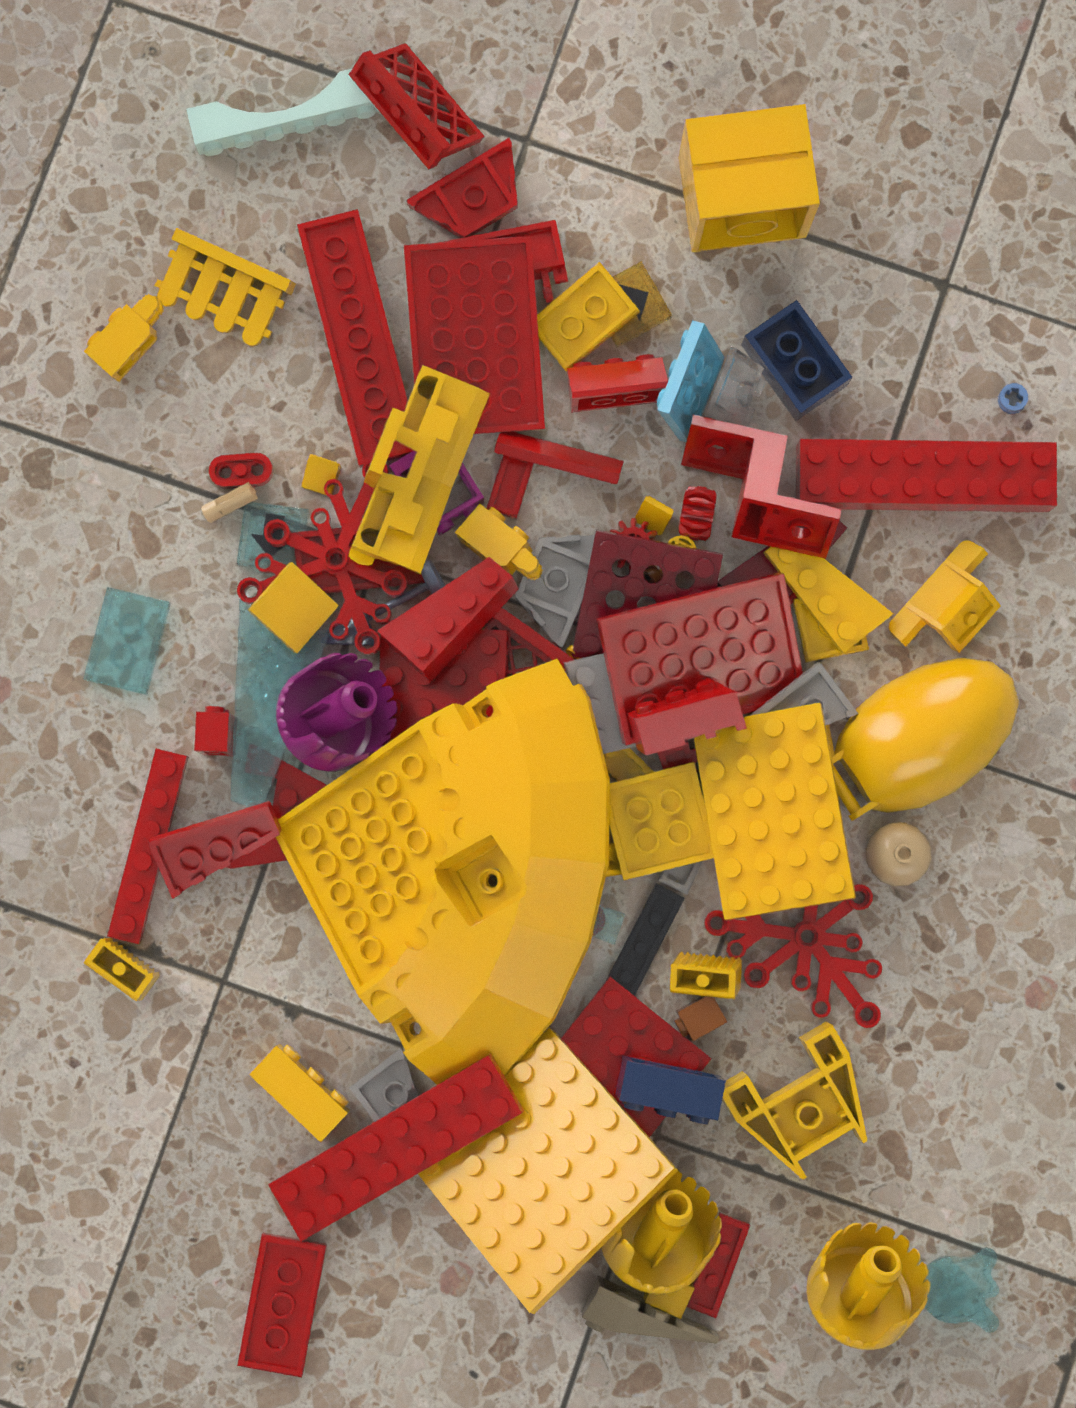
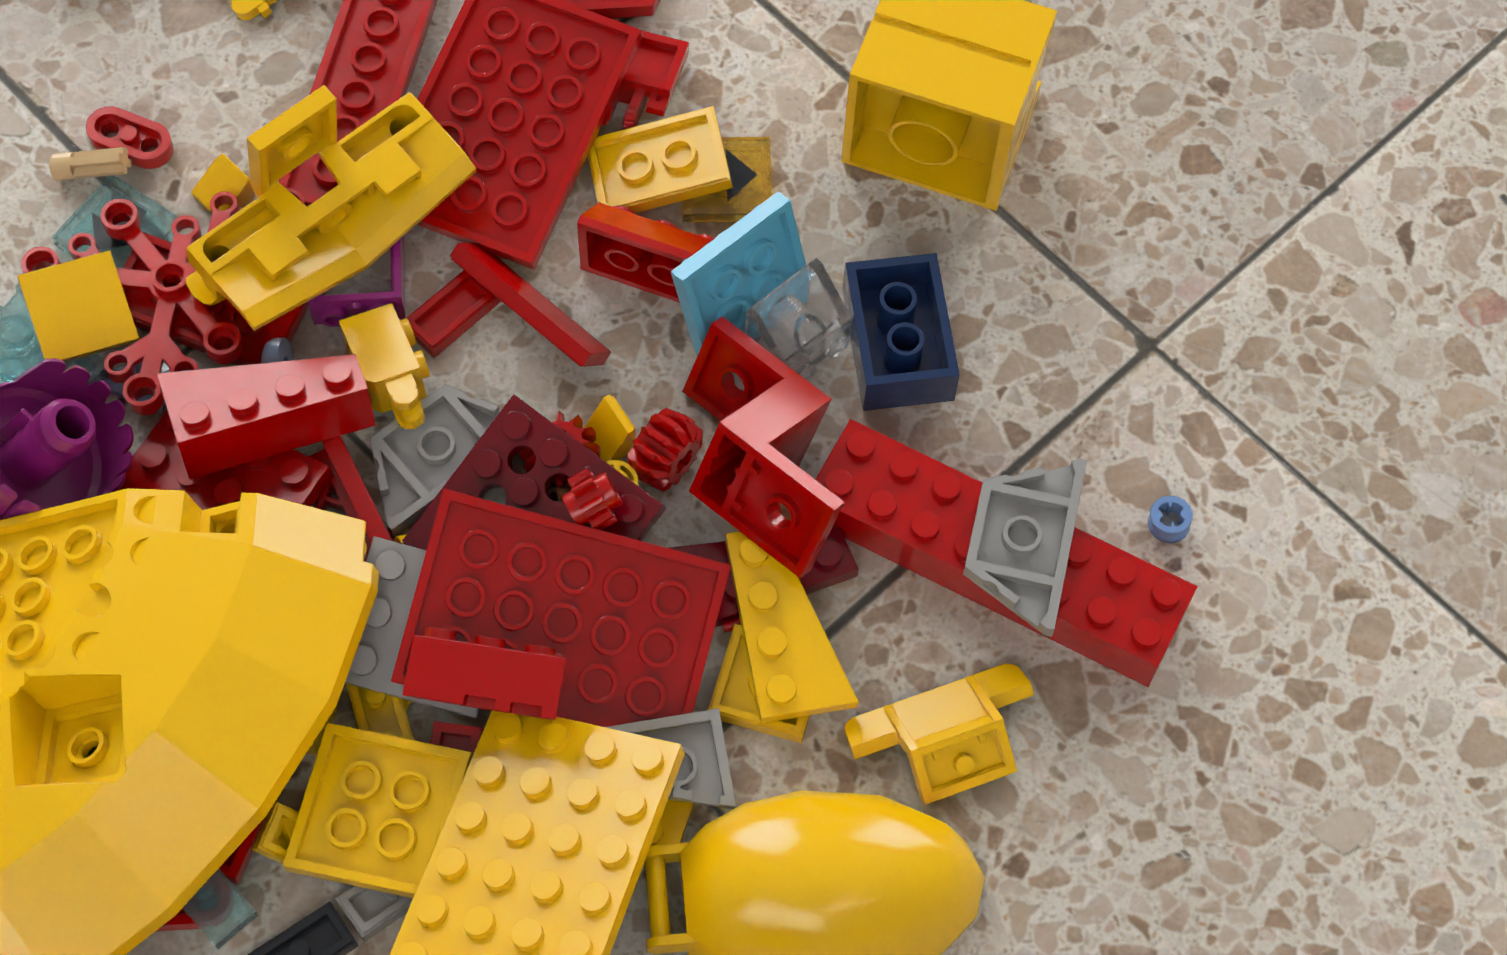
camera: 25 degrees right, 20 degrees down
(685, 578) = (592, 499): none -> red gear
(948, 468) = (1025, 540): none -> light grey wing

